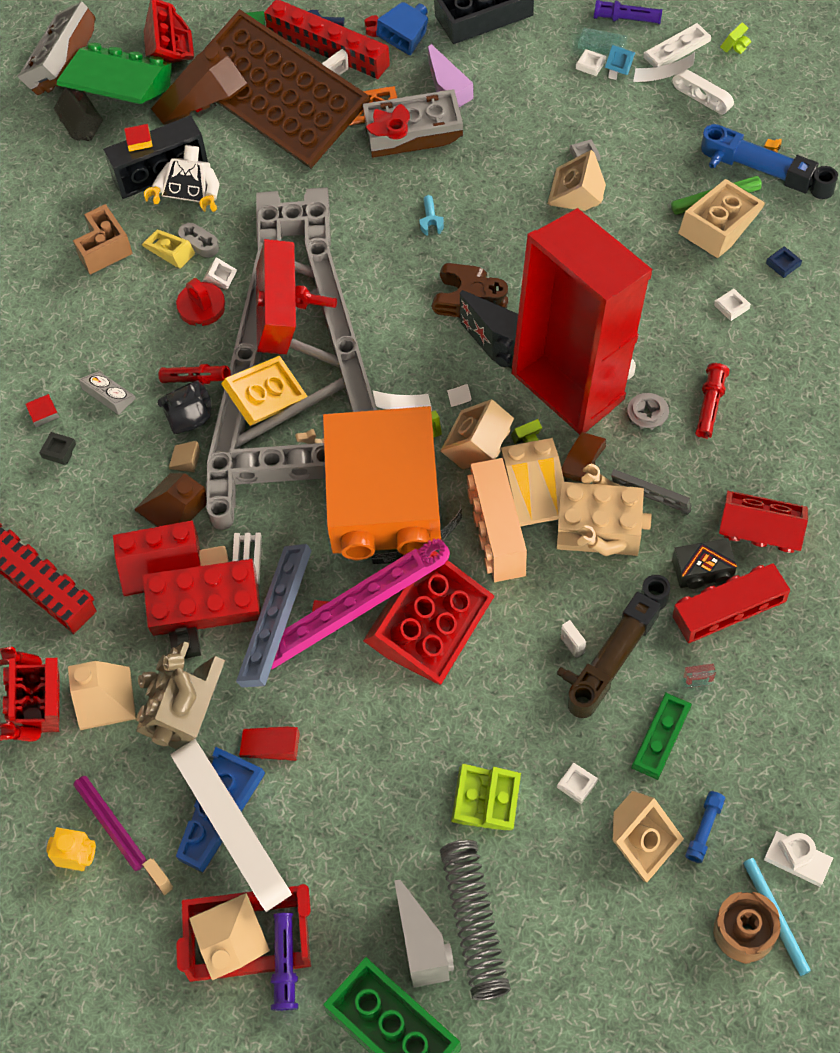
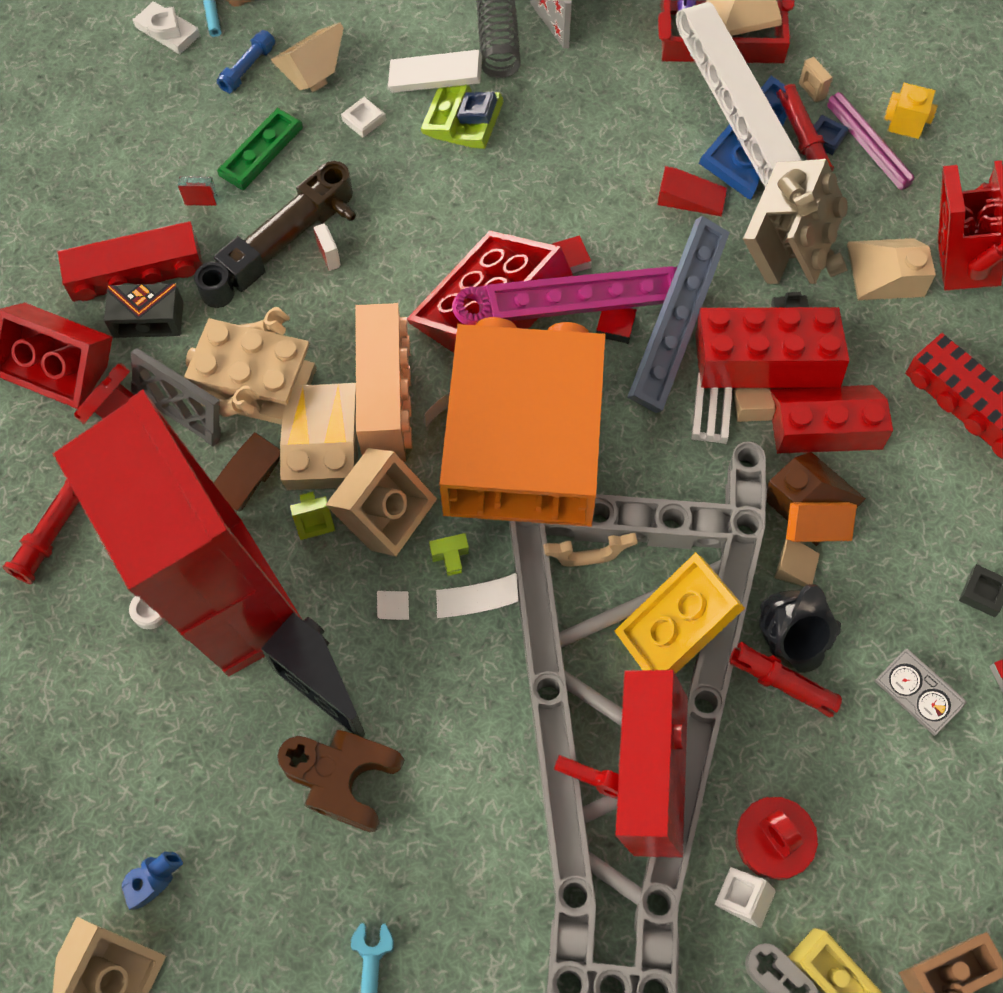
camera: 175 degrees left, 5 degrees up
(148, 825) = (832, 133): none -> dark blue tile
(165, 803) = (810, 142): none -> red pin
(167, 473) = (821, 521): none -> orange tile
(369, 669) = (575, 253): none -> red tile
(472, 796) = (477, 107): none -> dark blue tile
(519, 829) = (435, 71): none -> white tile
(703, 484) = (106, 396): none -> red tile

